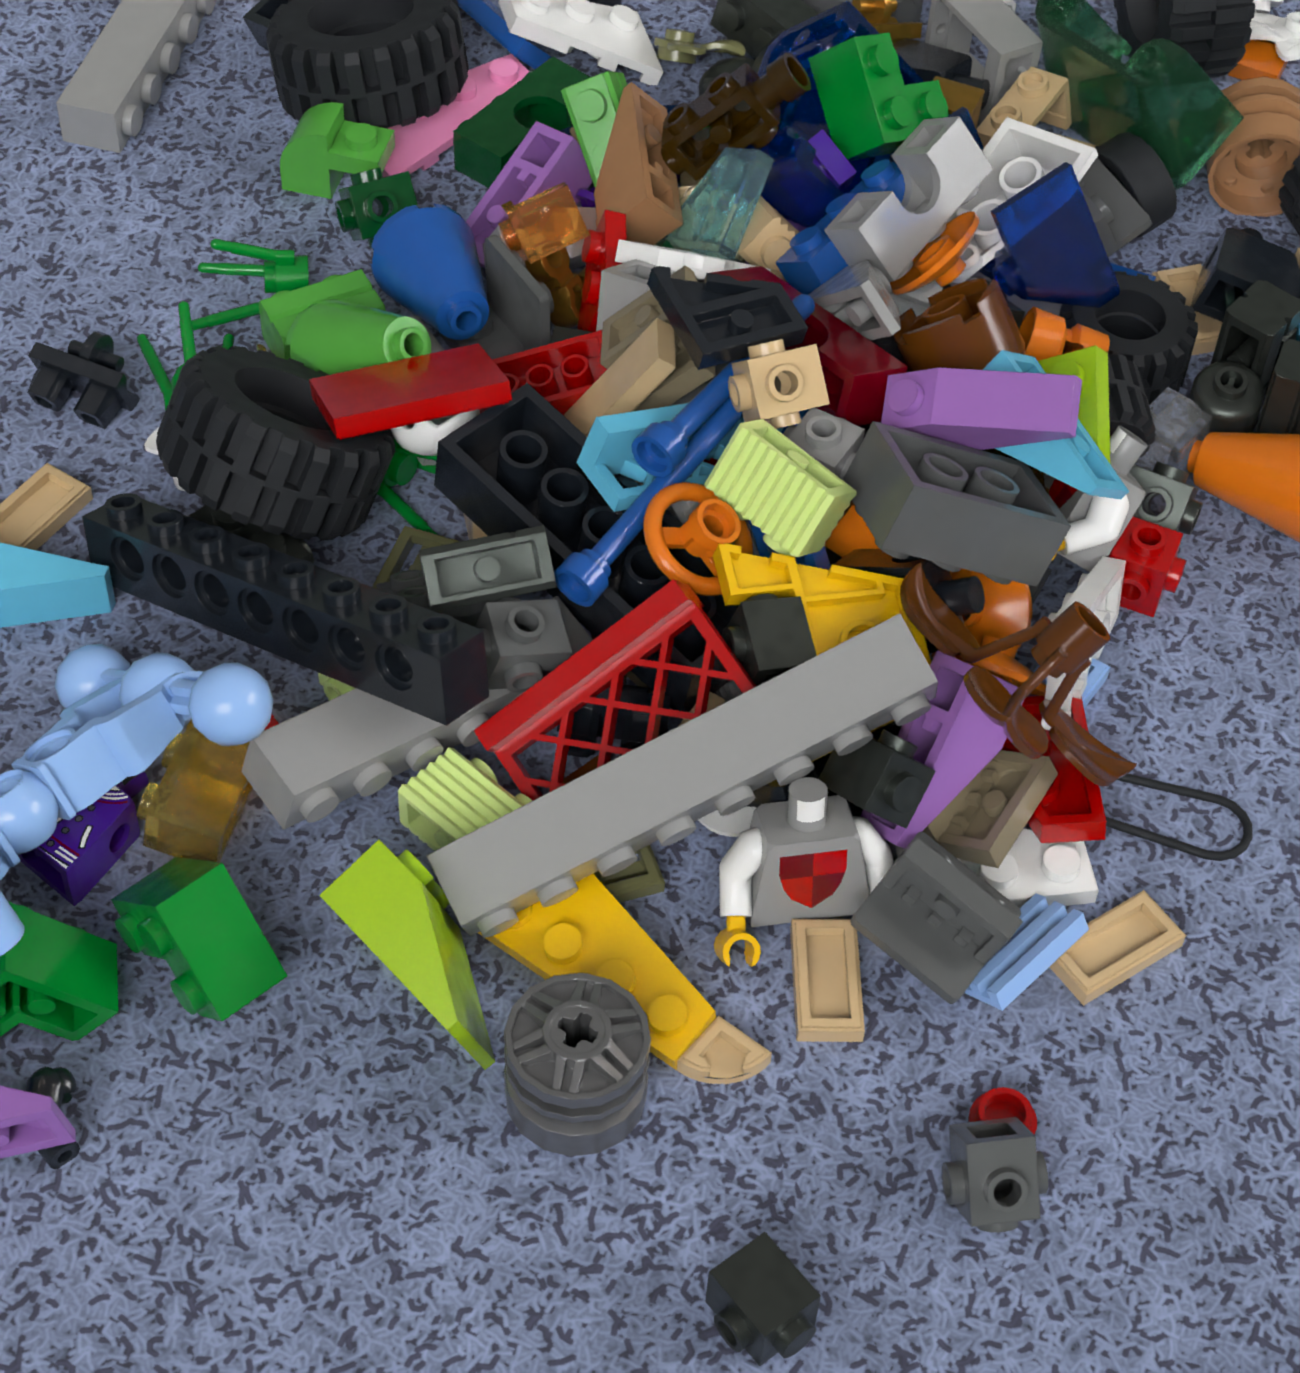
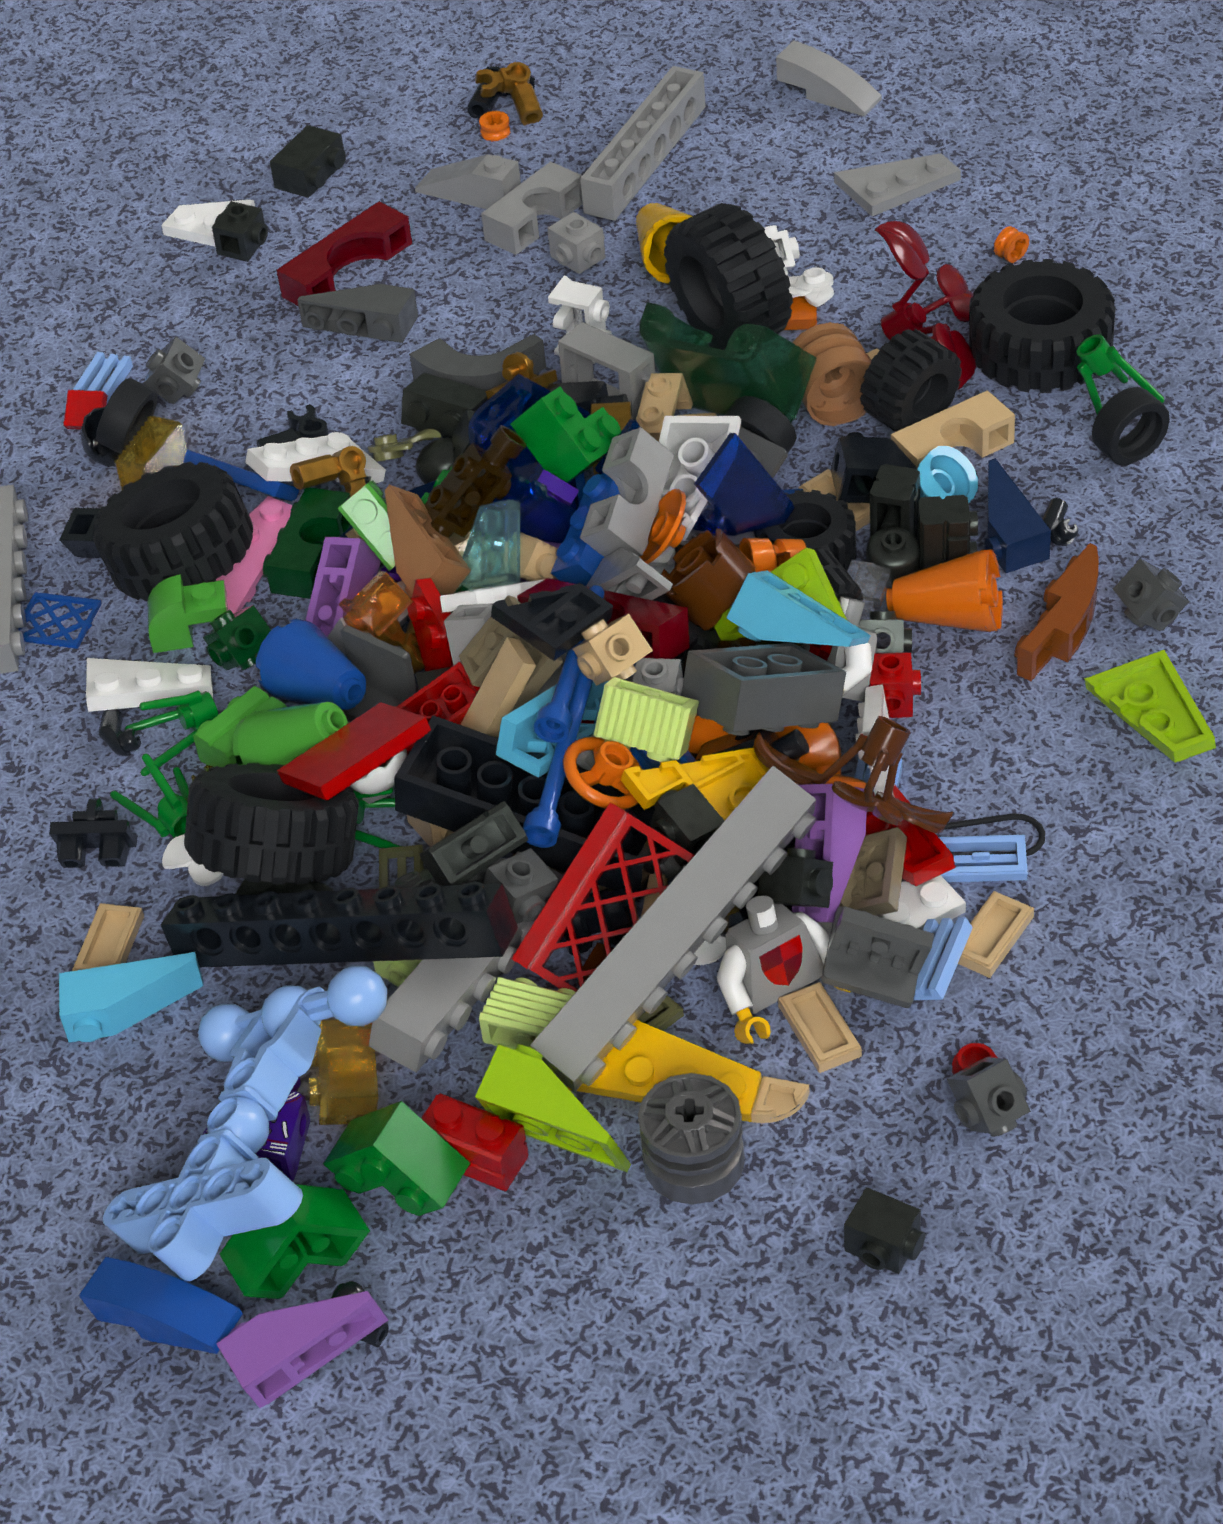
camera: 15 degrees left, 5 degrees down
(176, 263) = (110, 731): none -> black arm
(217, 91) = (93, 604): none -> blue window
(225, 210) = (128, 683): none -> white wing
(322, 963) = (489, 1143): none -> red brick
(613, 45) = (345, 464): none -> pearl gold bar
(983, 406) = (754, 614): medium lavender slope -> none
(1145, 861) = (983, 865): none -> light blue tile

